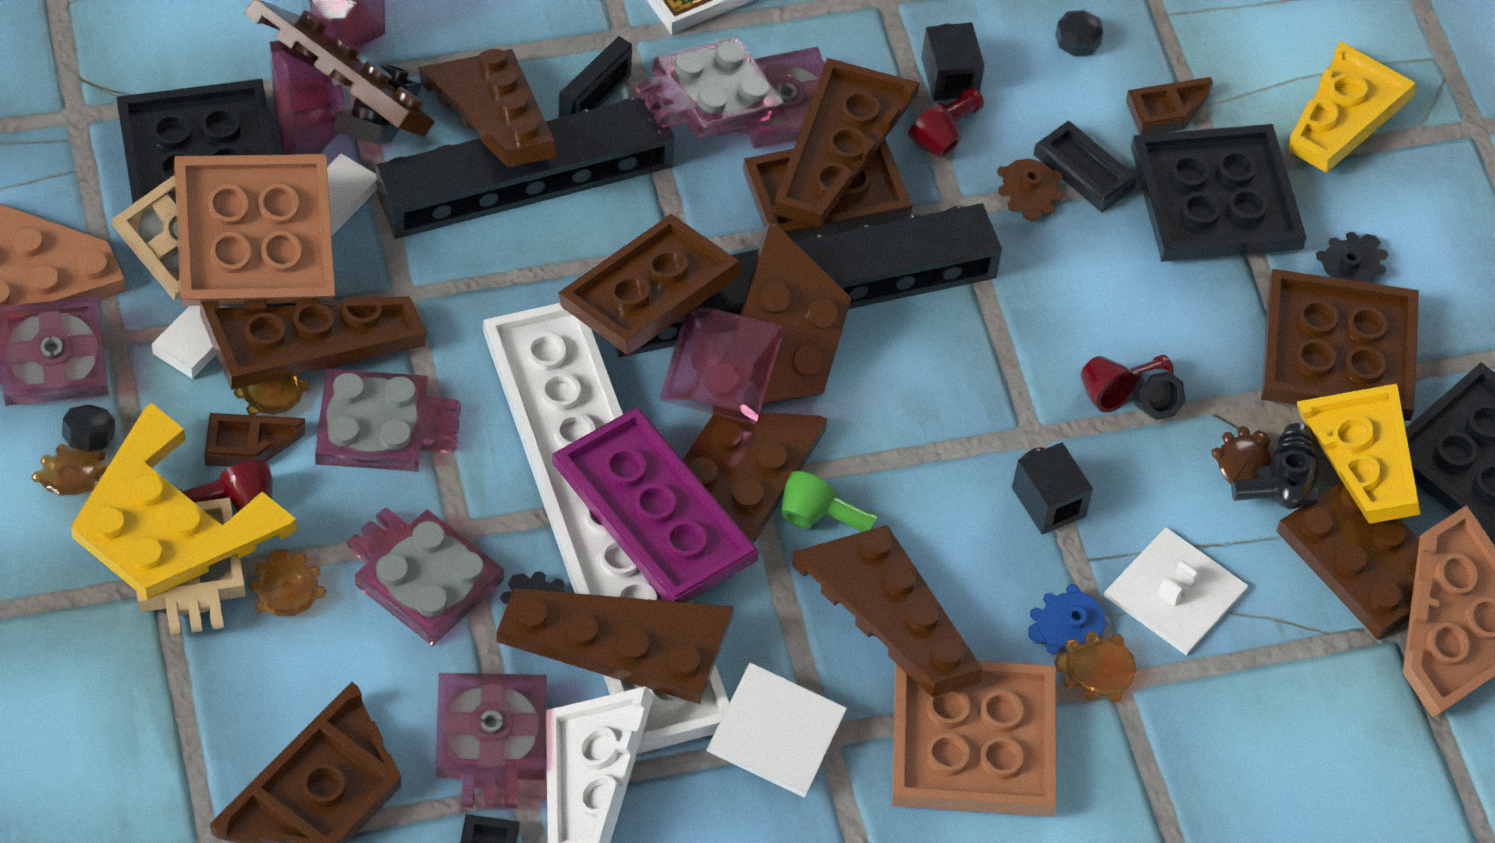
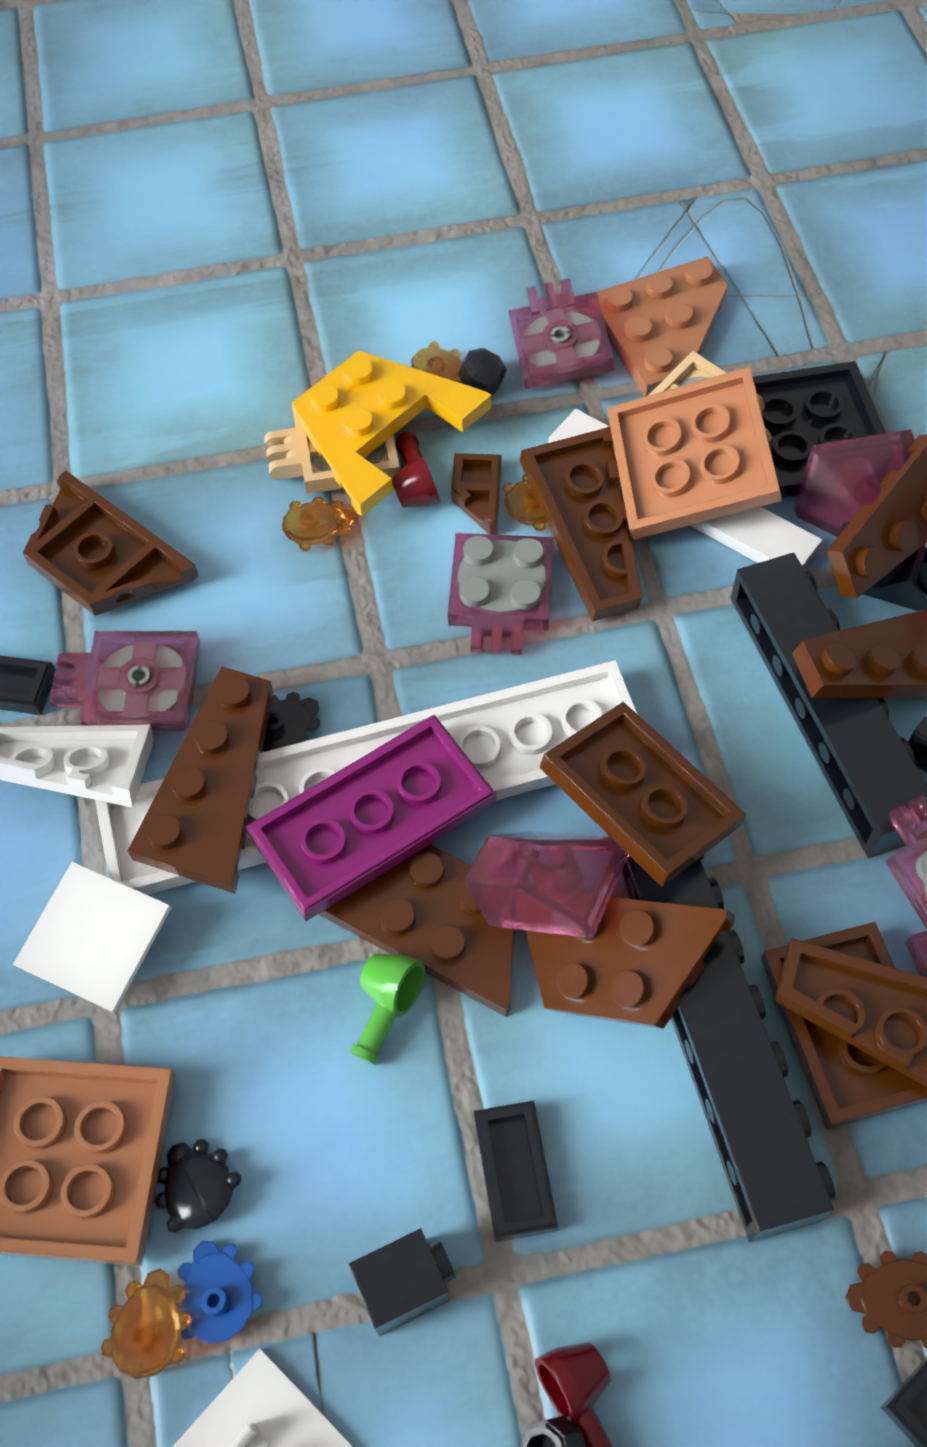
camera: 100 degrees right, 5 degrees up
(422, 572) = (325, 627): piece -> none
(893, 603) = (241, 1066): reddish brown wing -> none
(956, 421) = (515, 1171): none -> black tile
(992, 635) = (195, 1185): none -> black piece

